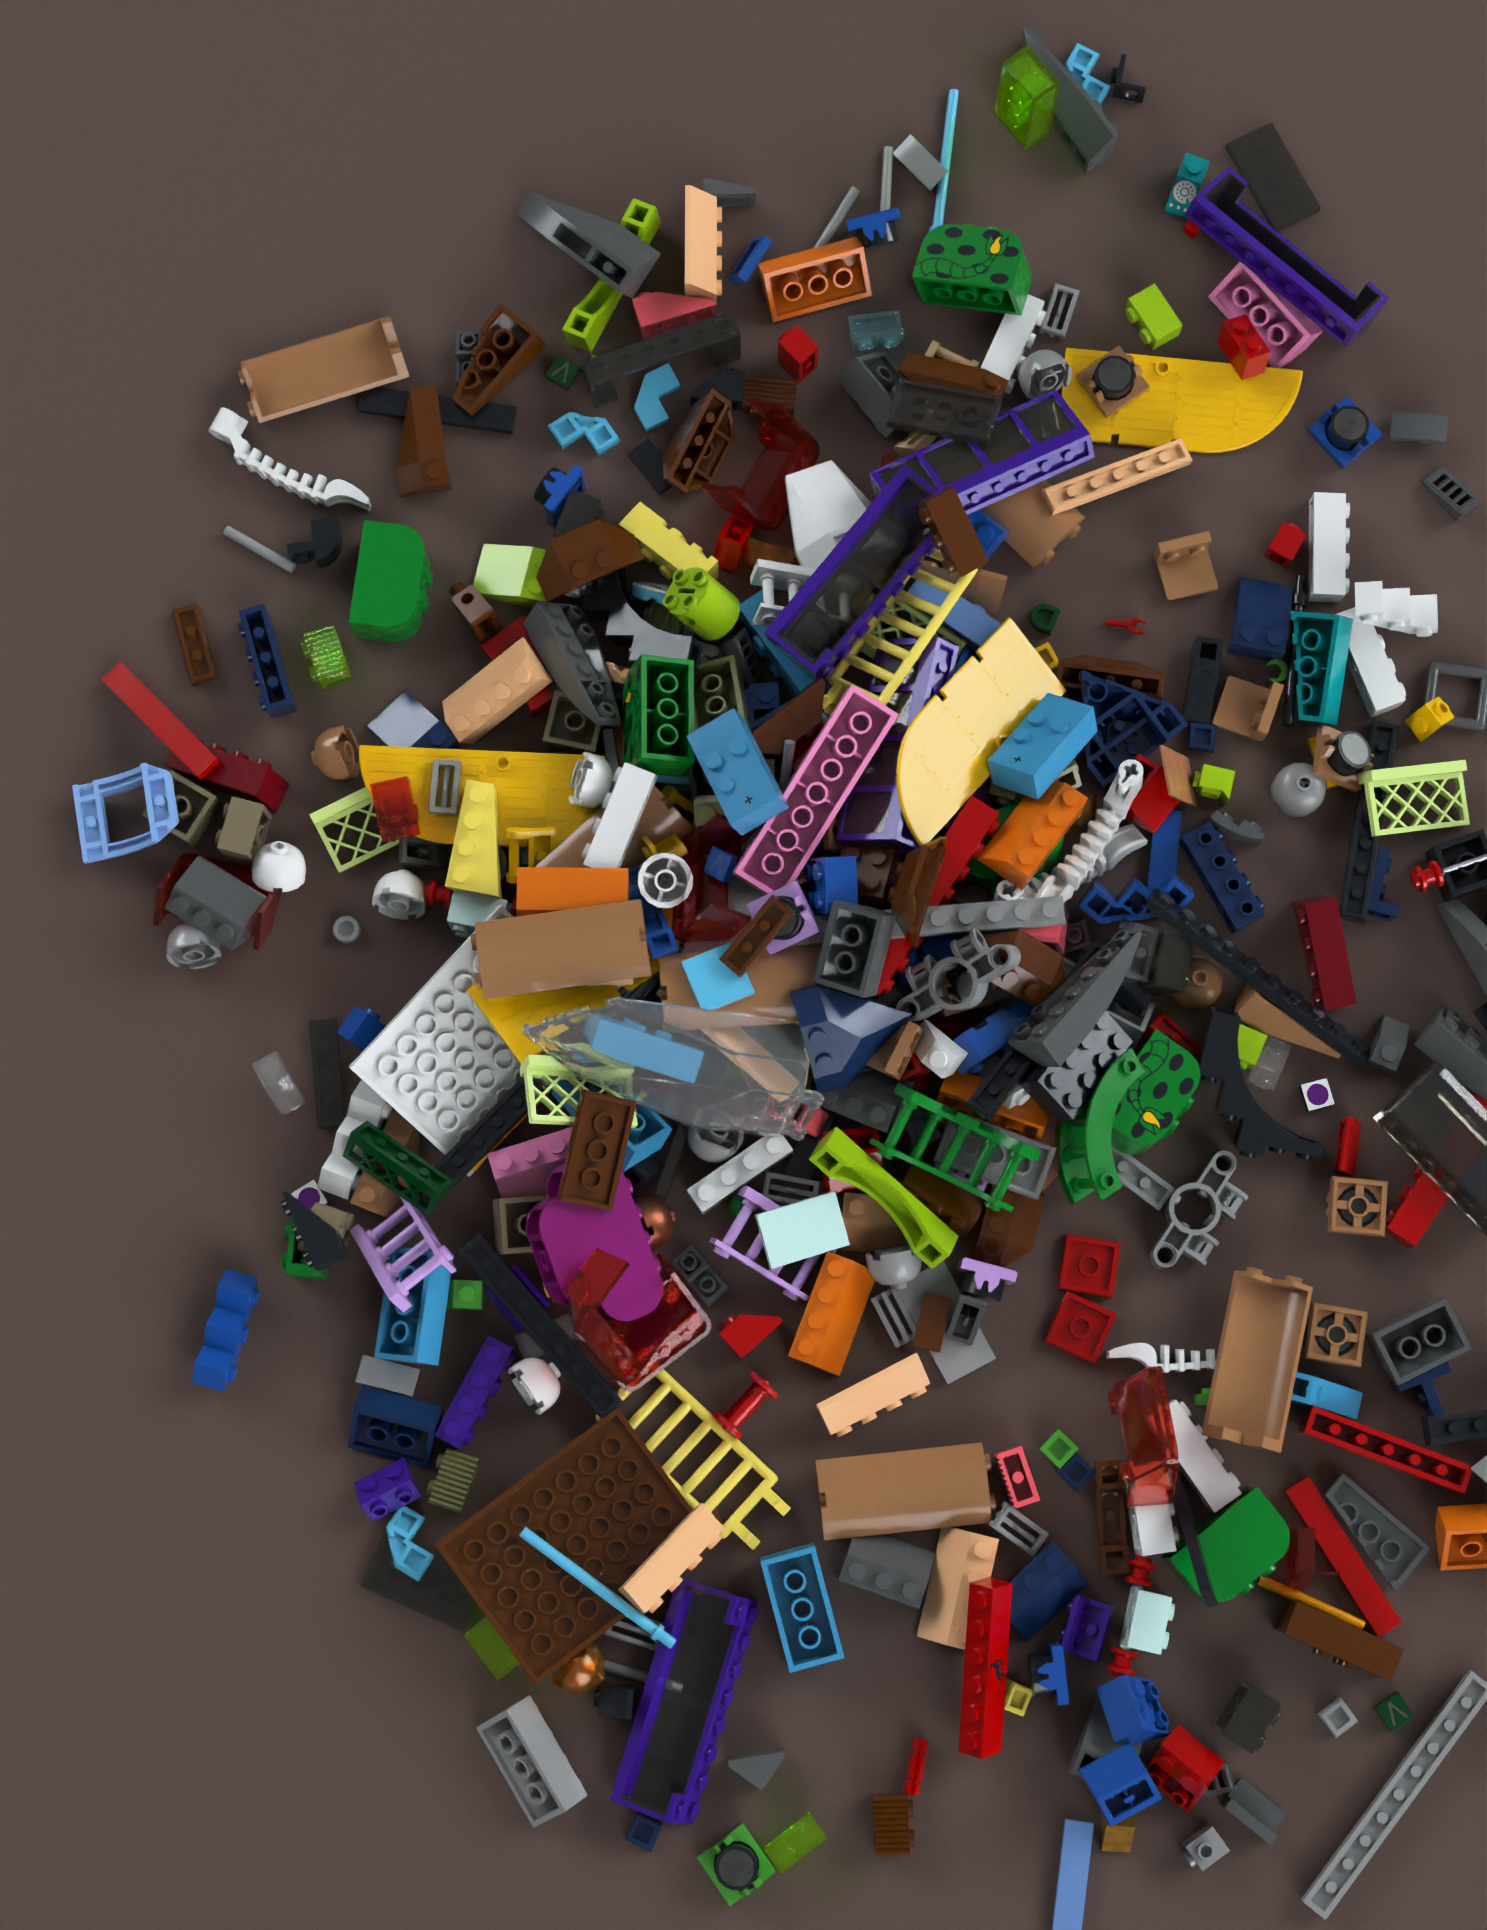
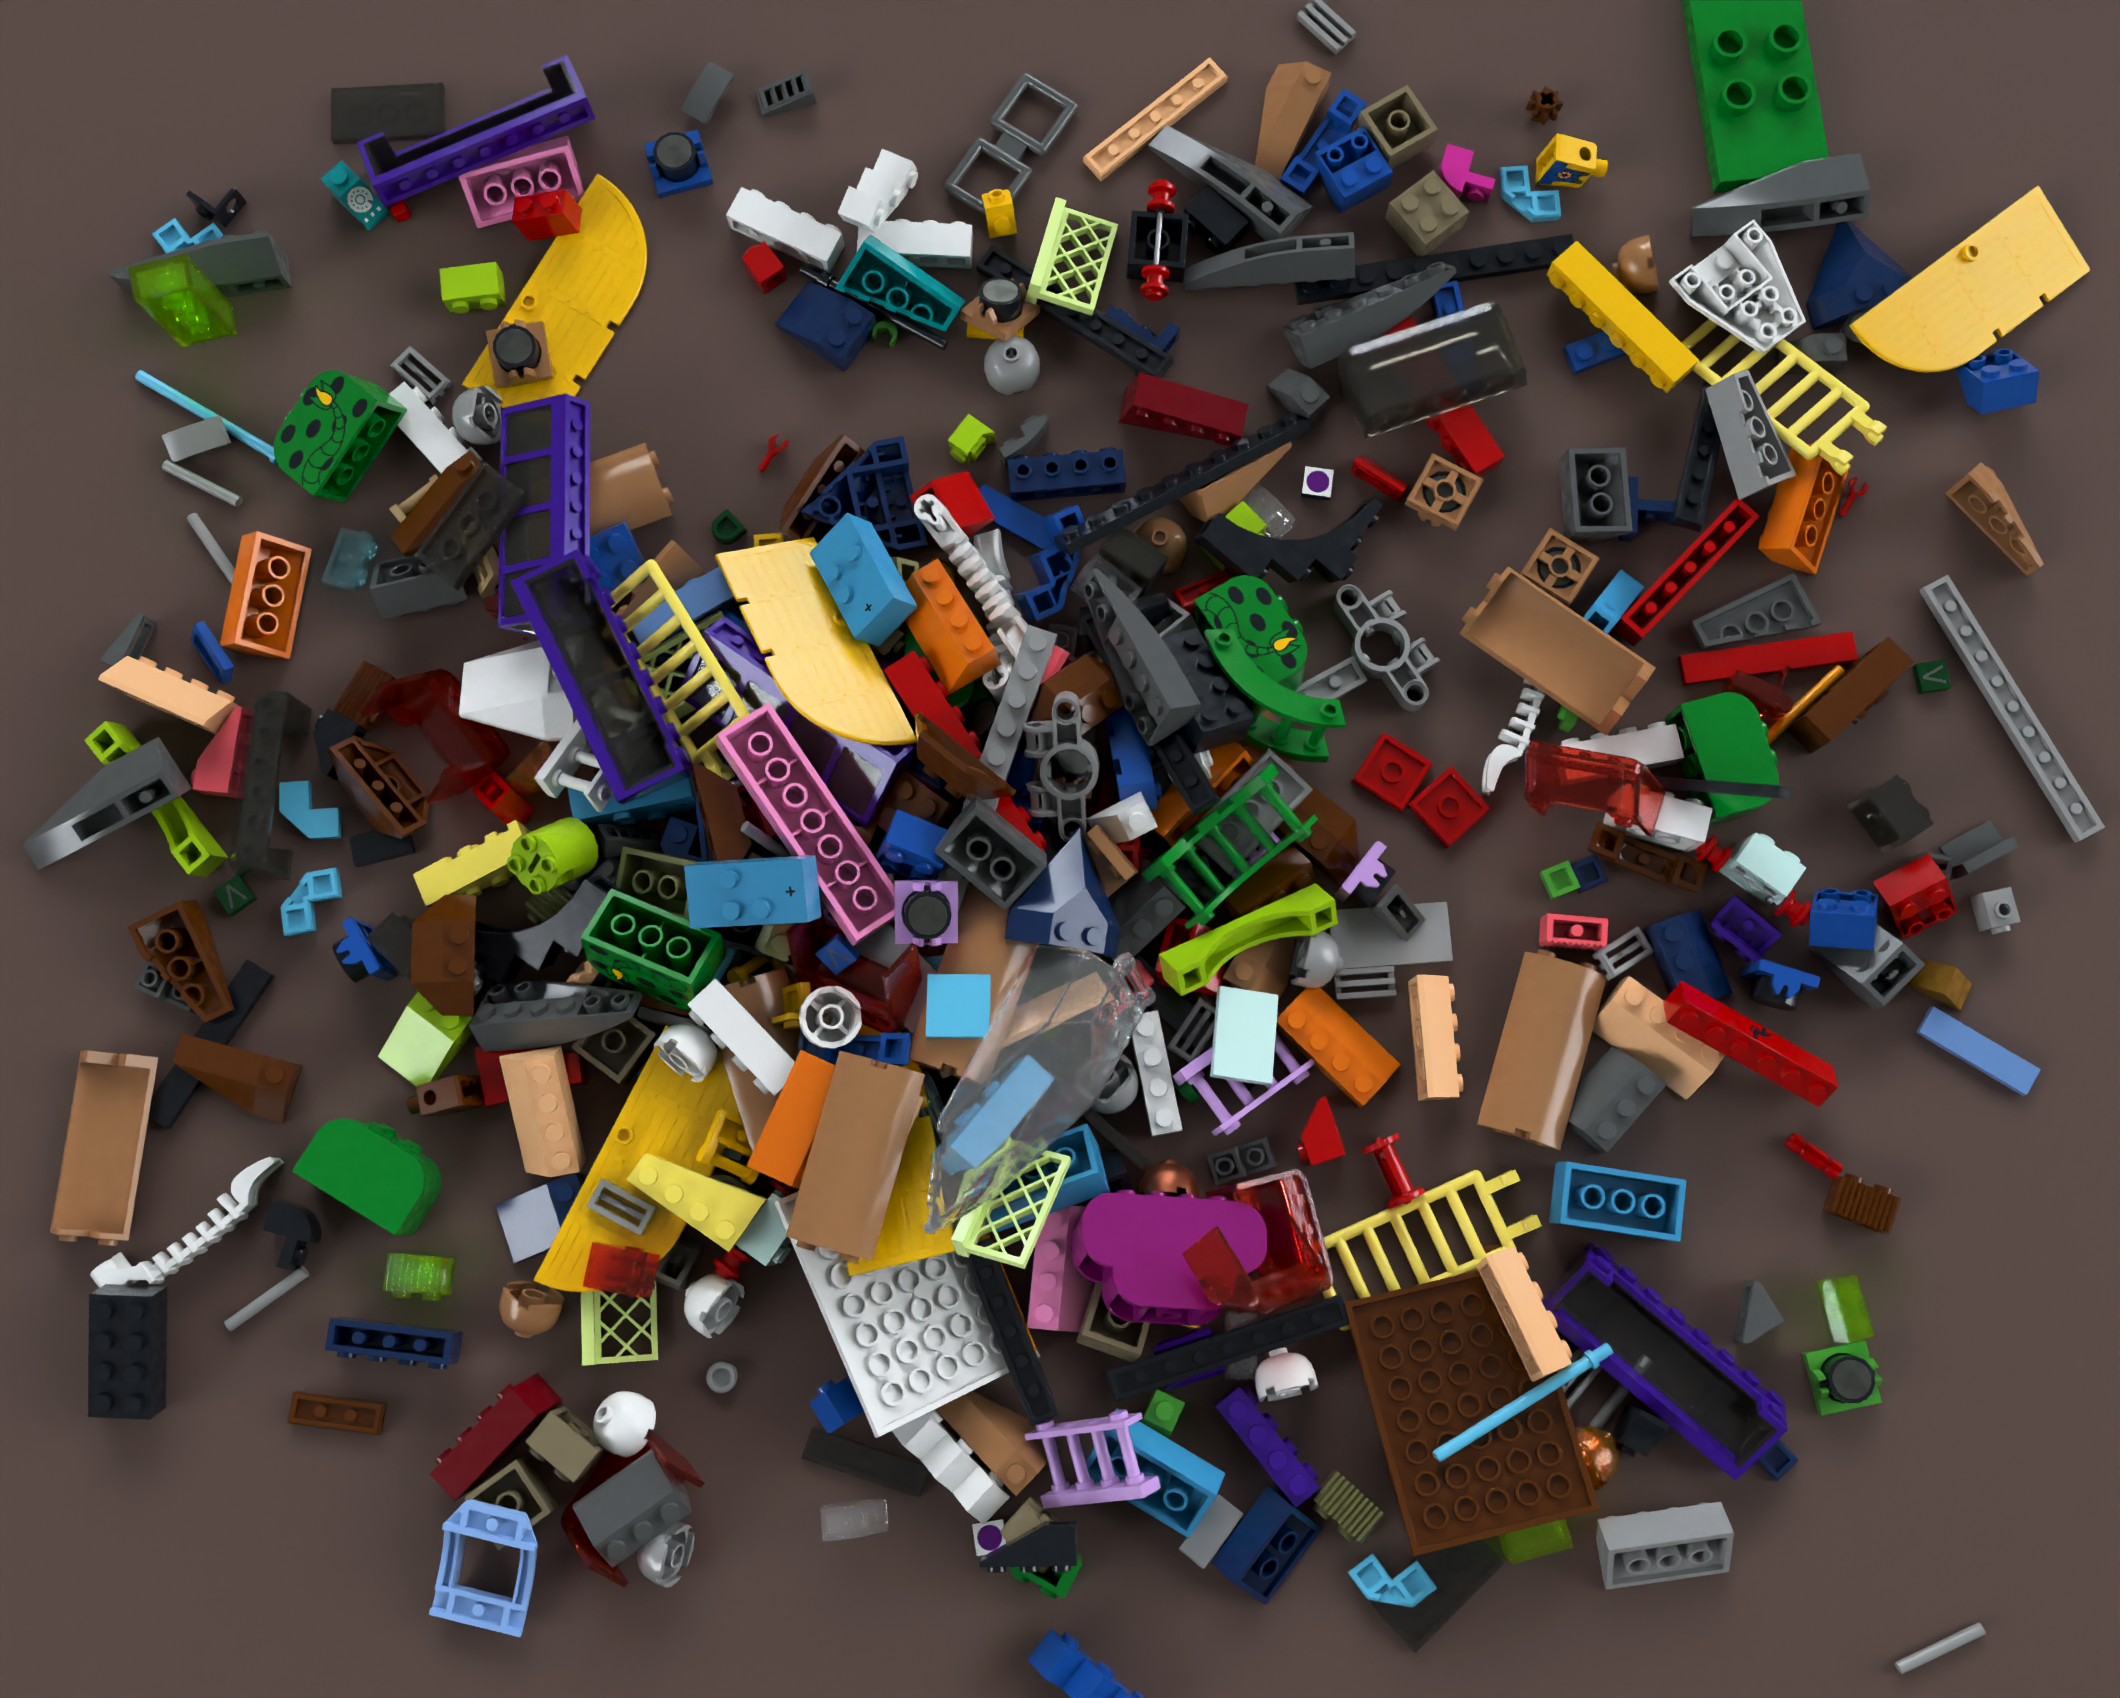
camera: 65 degrees left, 0 degrees up
(161, 720) = (403, 1486): red tile -> none
(175, 463) = (127, 1351): none -> black brick
(387, 1489) = (1328, 1582): dark purple bracket -> none
(397, 1162) = (997, 1426): dark green fence -> none
(596, 1150) = (1081, 1210): reddish brown tile -> none
(649, 590) = (513, 902): medium azure tile -> none
(757, 936) = (935, 945): reddish brown tile -> none
(797, 353) = (335, 646): red brick -> none
(876, 228) = (243, 510): blue piece -> none
(932, 1322) = (1386, 948): reddish brown tile -> none
(952, 532) = (606, 564): reddish brown brick -> none
(1016, 1697) = (1784, 1026): light yellow slope -> none
(1116, 476) = (618, 394): light nougat tile -> none
(1120, 1784) = (1917, 961): blue slope -> none
(1178, 776) = (950, 467): nougat window -> none
(1185, 566) = (741, 370): medium nougat bracket -> none
(1201, 737) = (918, 432): dark blue tile -> none
(1202, 679) = (860, 403): black slope -> none
(1247, 708) = (910, 374): medium nougat bracket -> none
(1337, 1717) = (1917, 731): light grey tile -> none

